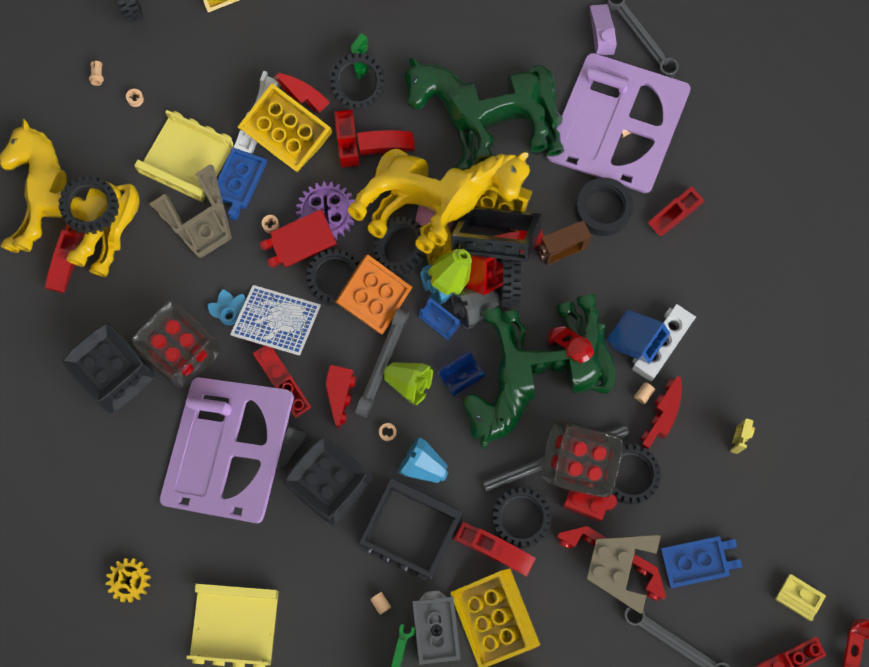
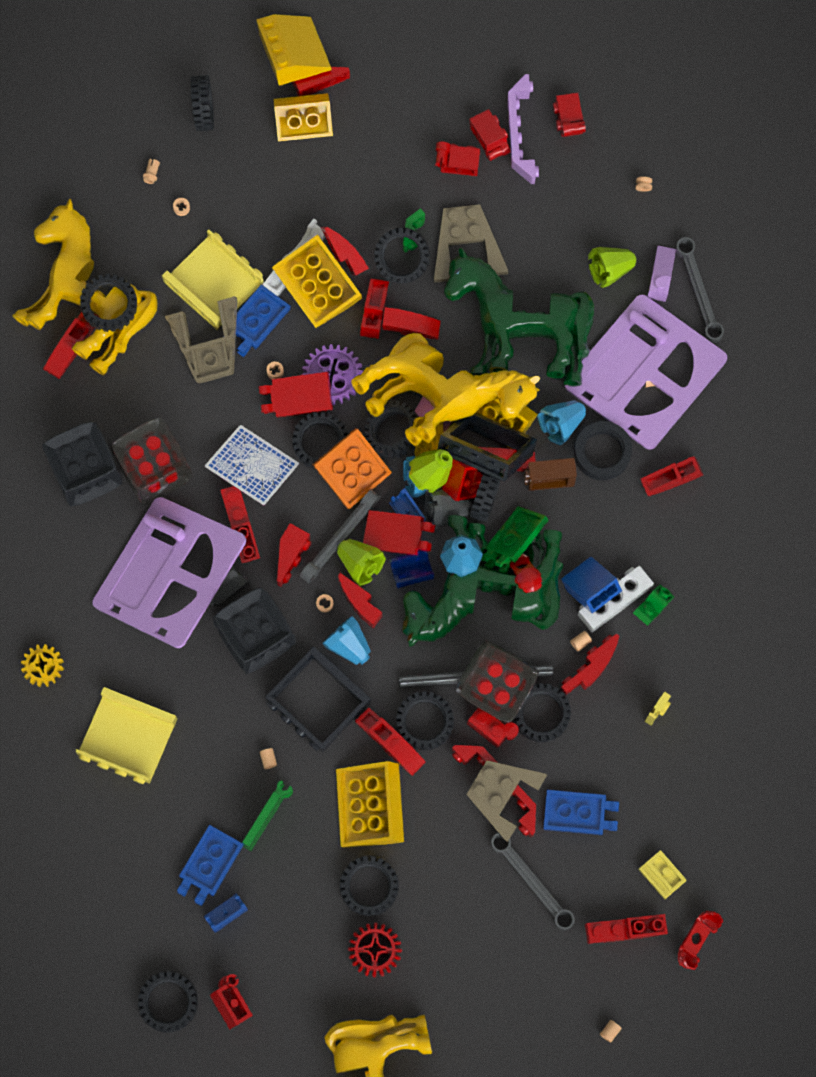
camera: 15 degrees right, 0 degrees up
(227, 305) = (209, 437): dark azure plate -> none
(405, 40) = (466, 226): none -> dark tan wing
(420, 419) = (359, 600): none -> red slope
(436, 342) = (397, 532): none -> red tile
(436, 628) = (311, 796): dark grey piece -> none
(507, 346) = (461, 555): none -> dark azure cone
(549, 314) = (513, 538): none -> green tile
(552, 34) = (610, 264): none -> lime cone
(556, 190) = (561, 420): none -> dark azure cone
(701, 337) = (654, 604): none -> green slope

